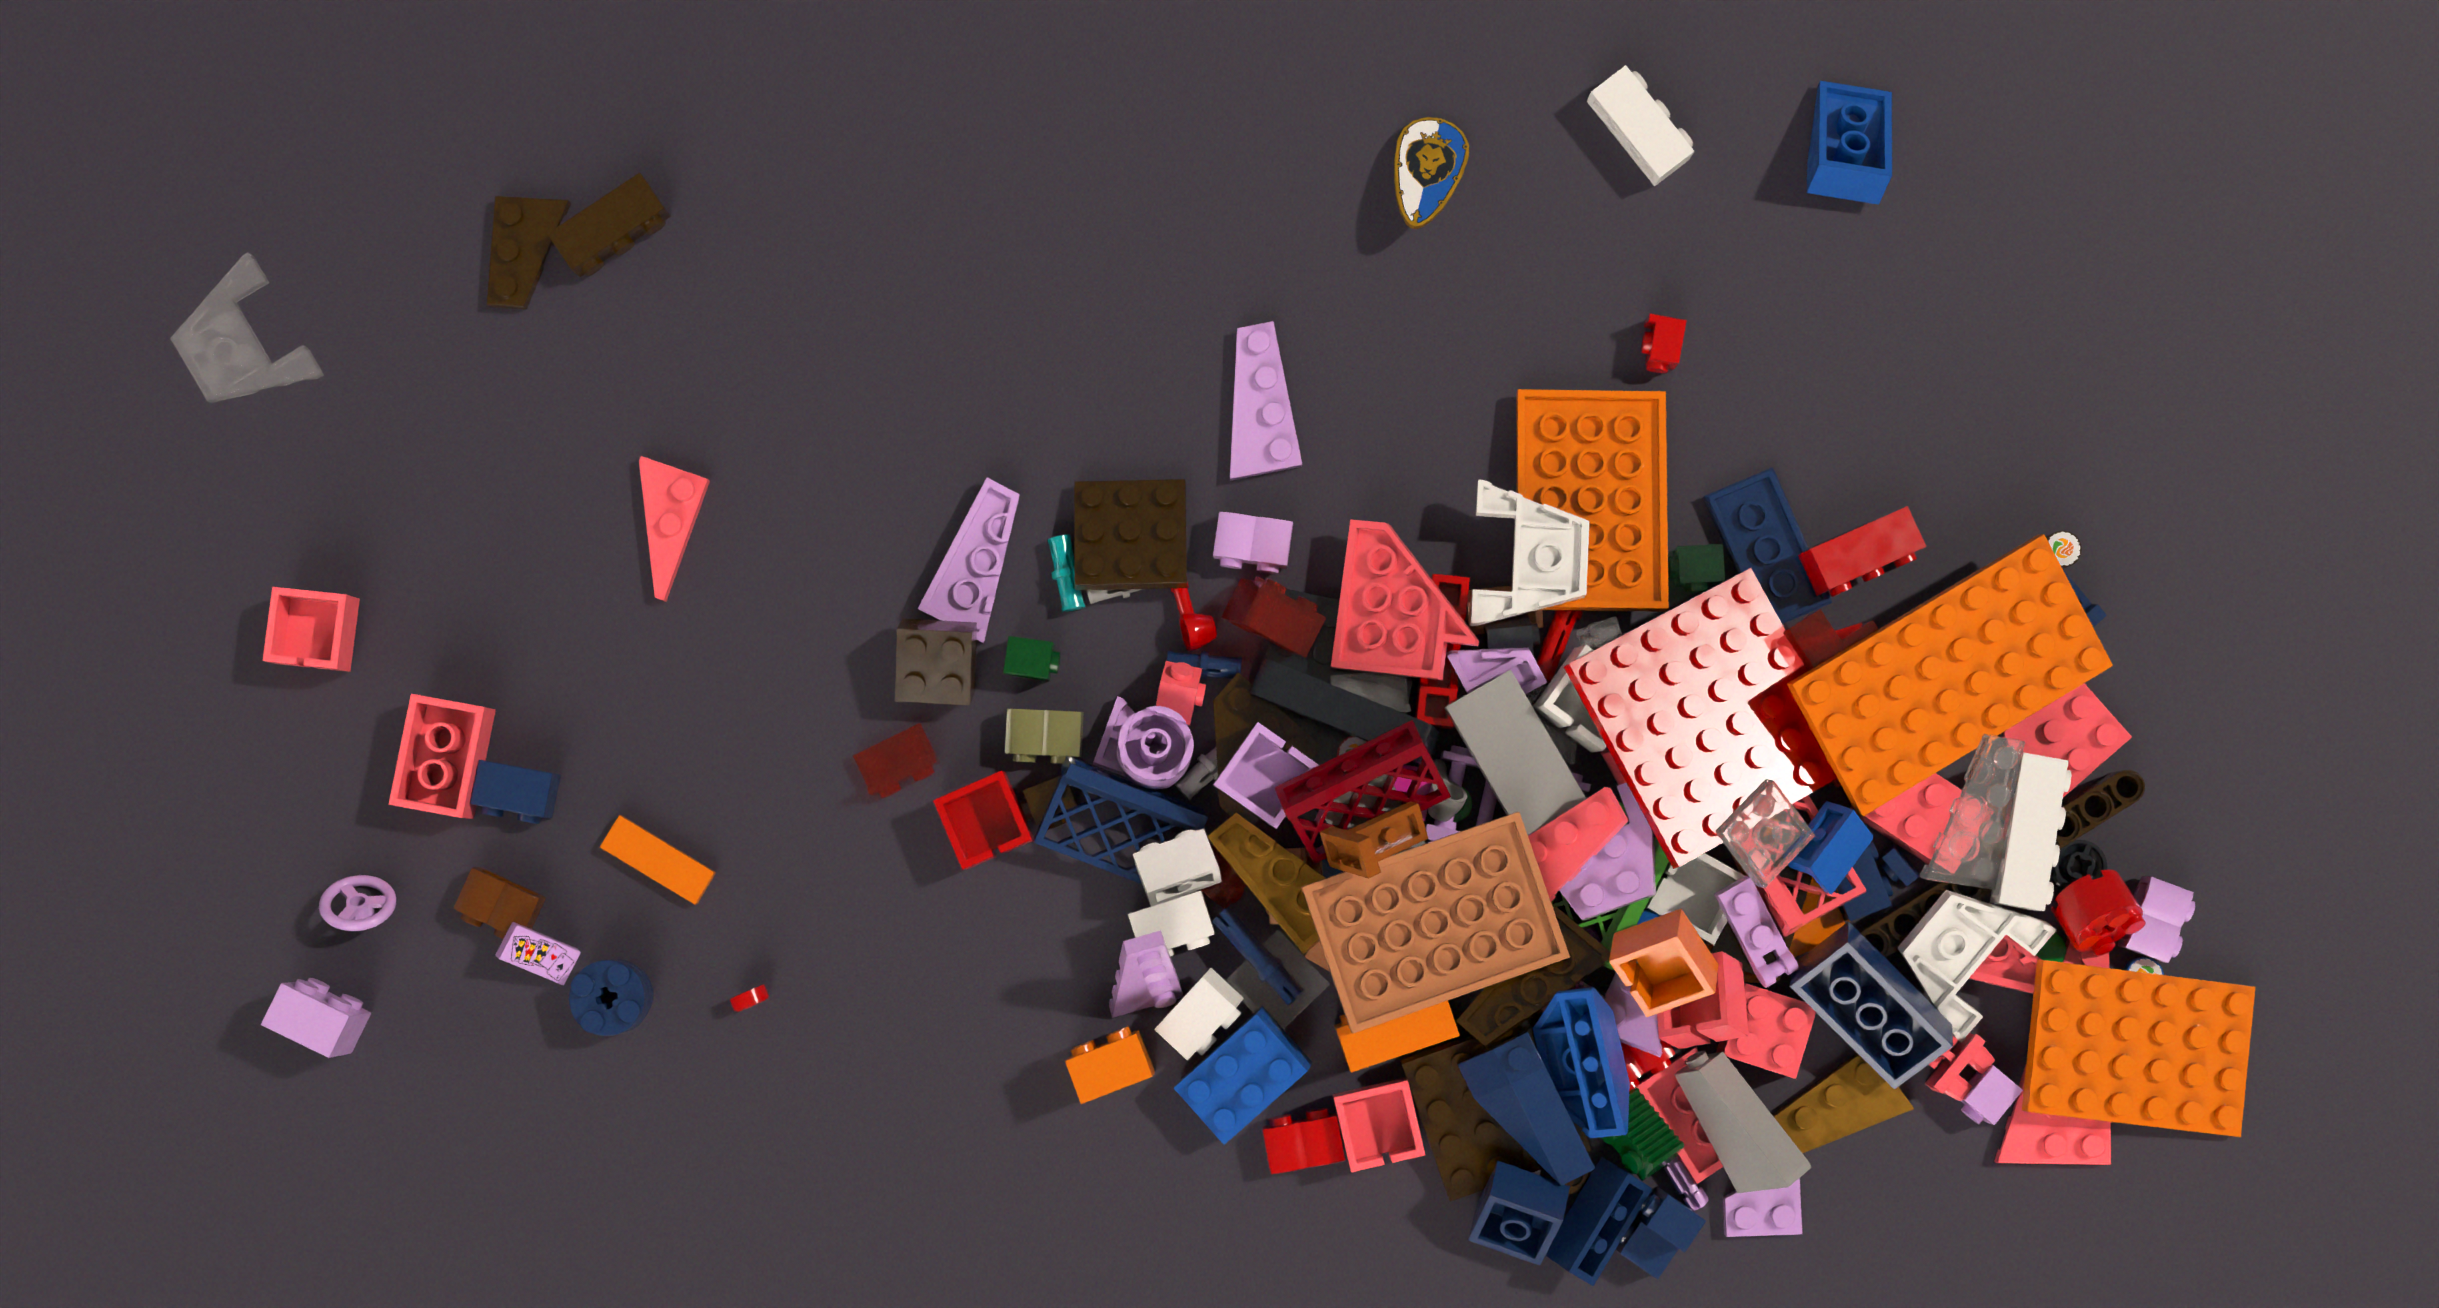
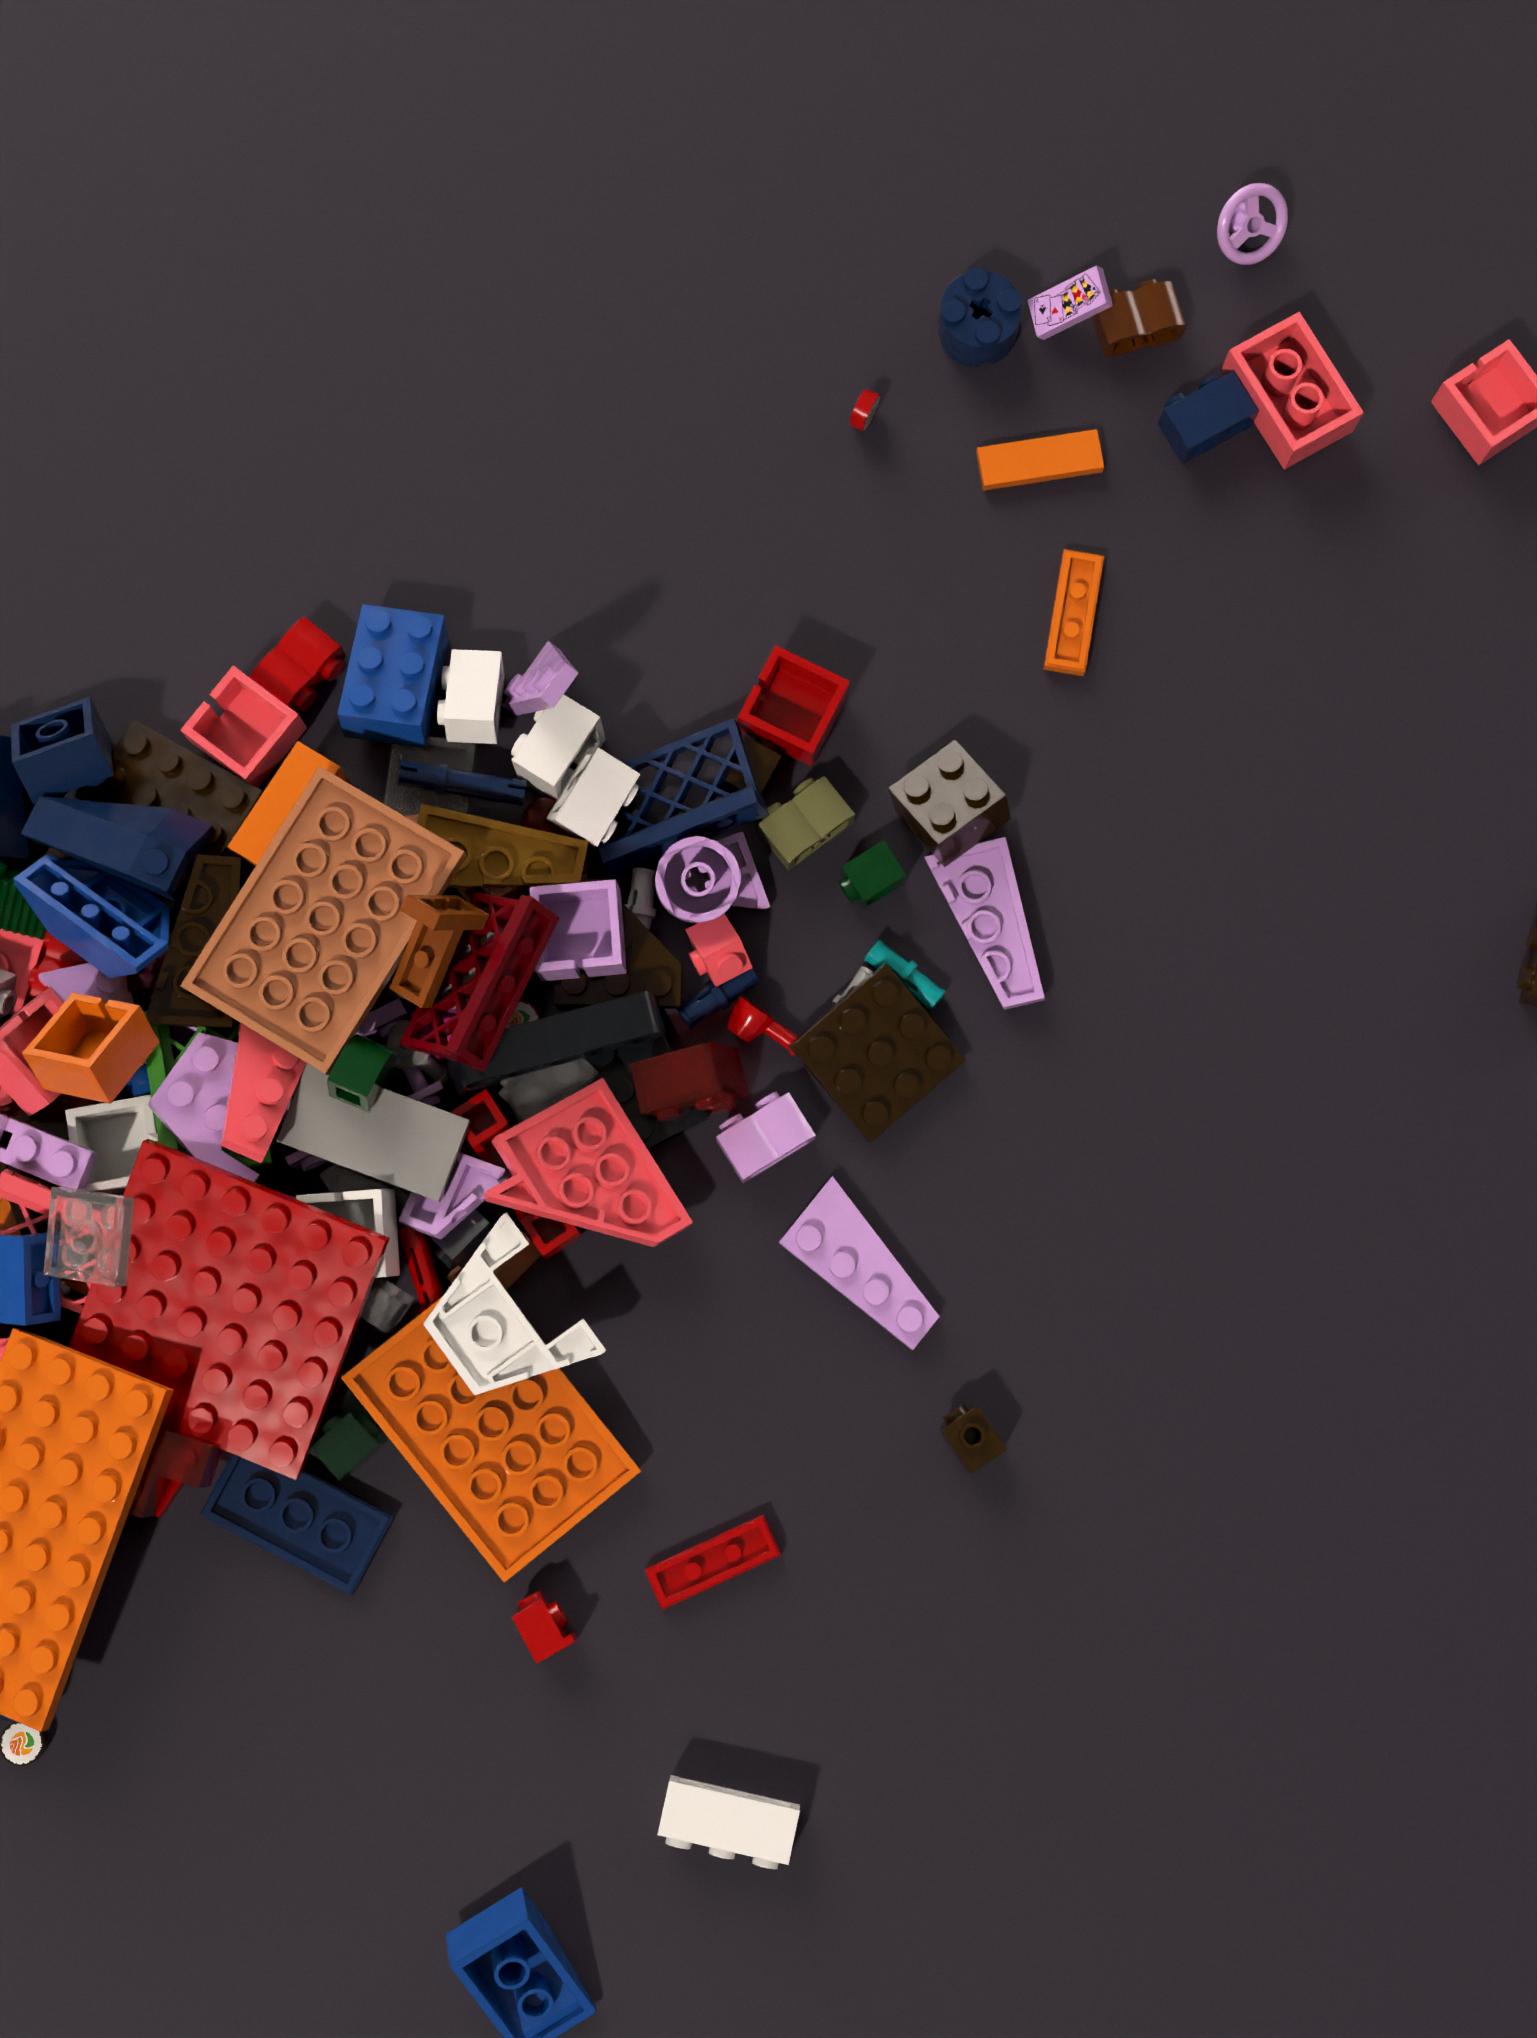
camera: 135 degrees right, 5 degrees down
(317, 1017) = (1201, 108): lavender brick -> none
(671, 508) = (1288, 750): coral wing -> none
(731, 730) = (1073, 612): none -> orange tile
(897, 760) = (911, 700): clear red bracket -> none
(1109, 1065) = (514, 591): orange piece -> none
(1283, 232) = (971, 1437): none -> dark brown brick
(1428, 168) = (890, 1609): shield -> none
(1492, 797) = (361, 1072): none -> dark green brick
(1517, 295) = (712, 1562): none -> red tile
(1863, 552) = (204, 1582): red brick -> none

